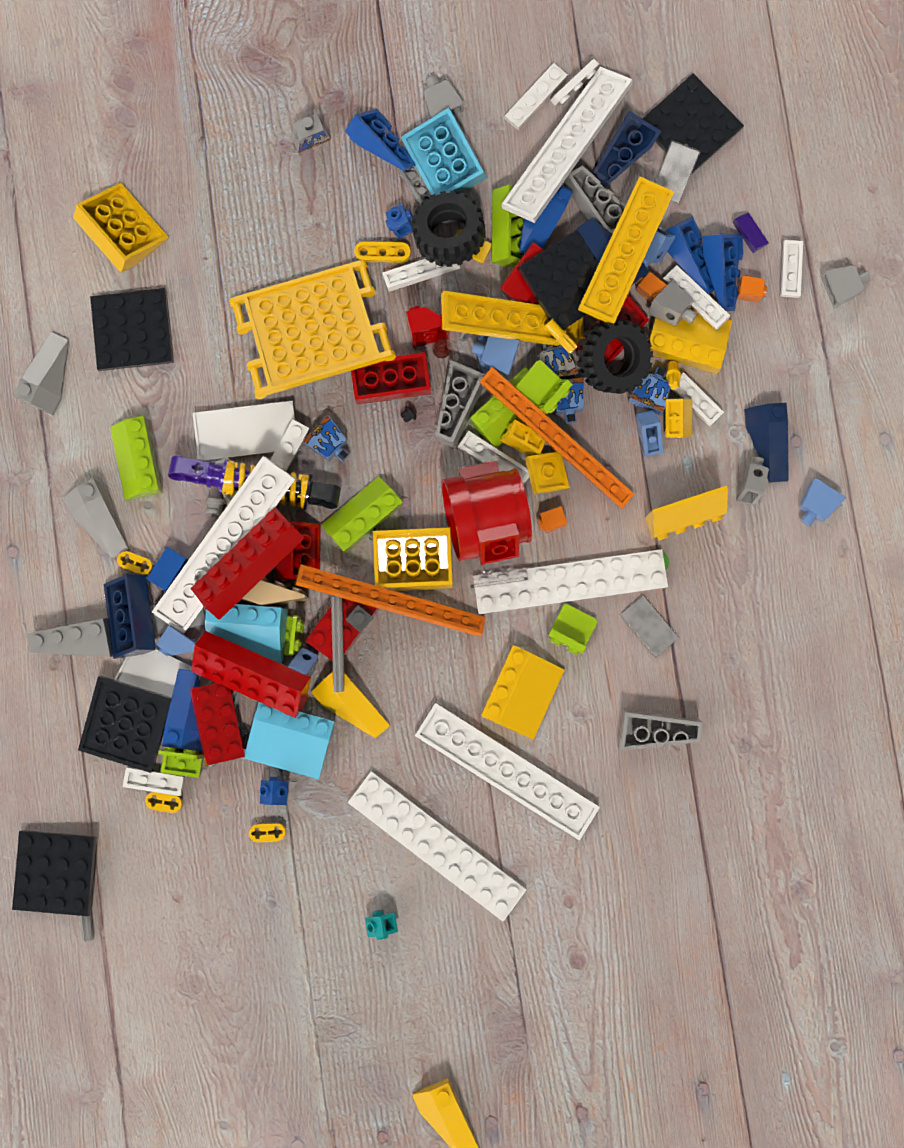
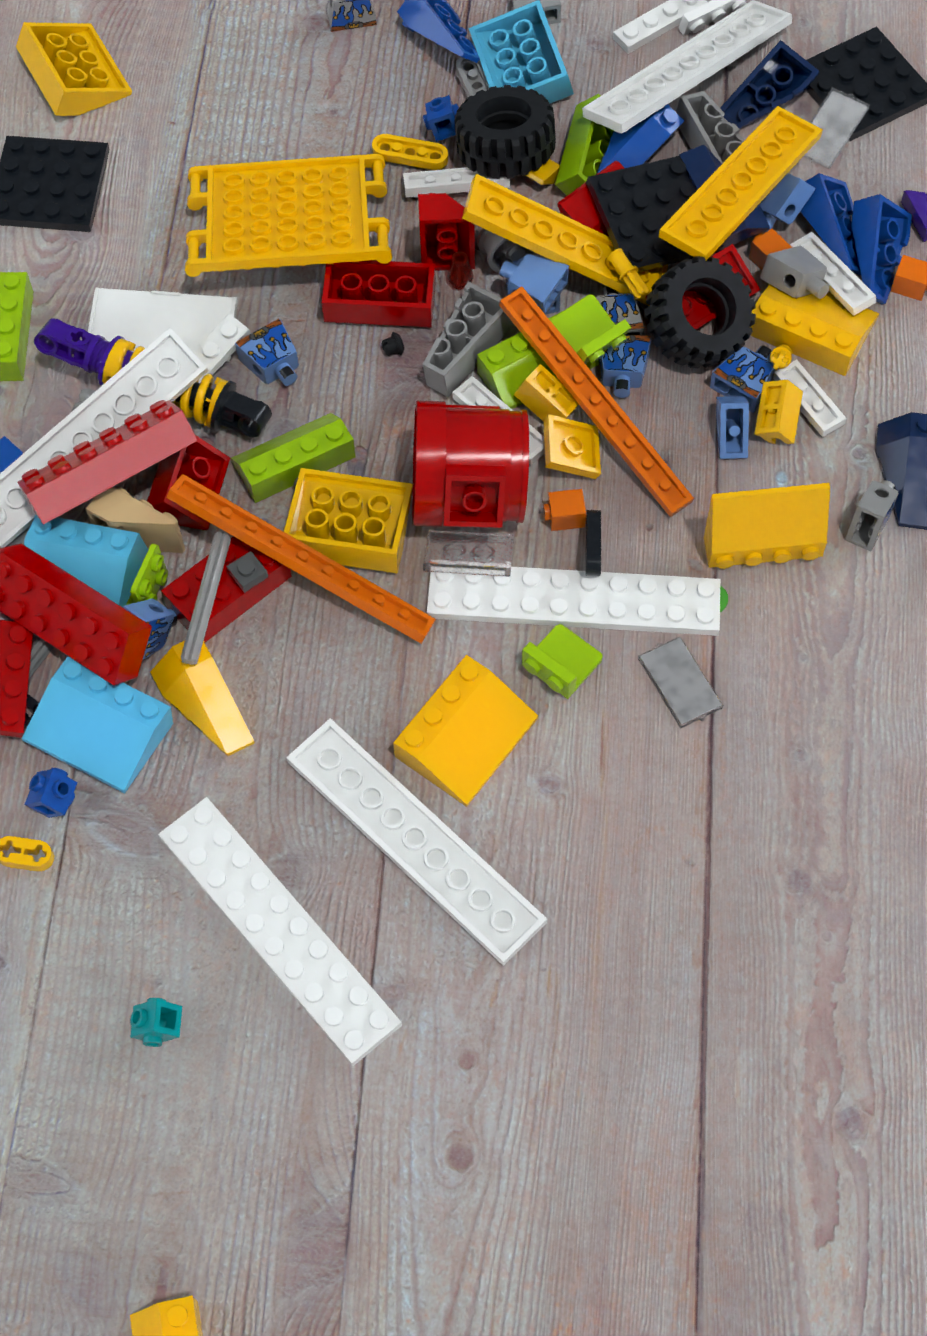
camera: 15 degrees right, 20 degrees down
(576, 543) = (593, 543): none -> black beam
(652, 730) = (660, 821): light grey wedge -> none

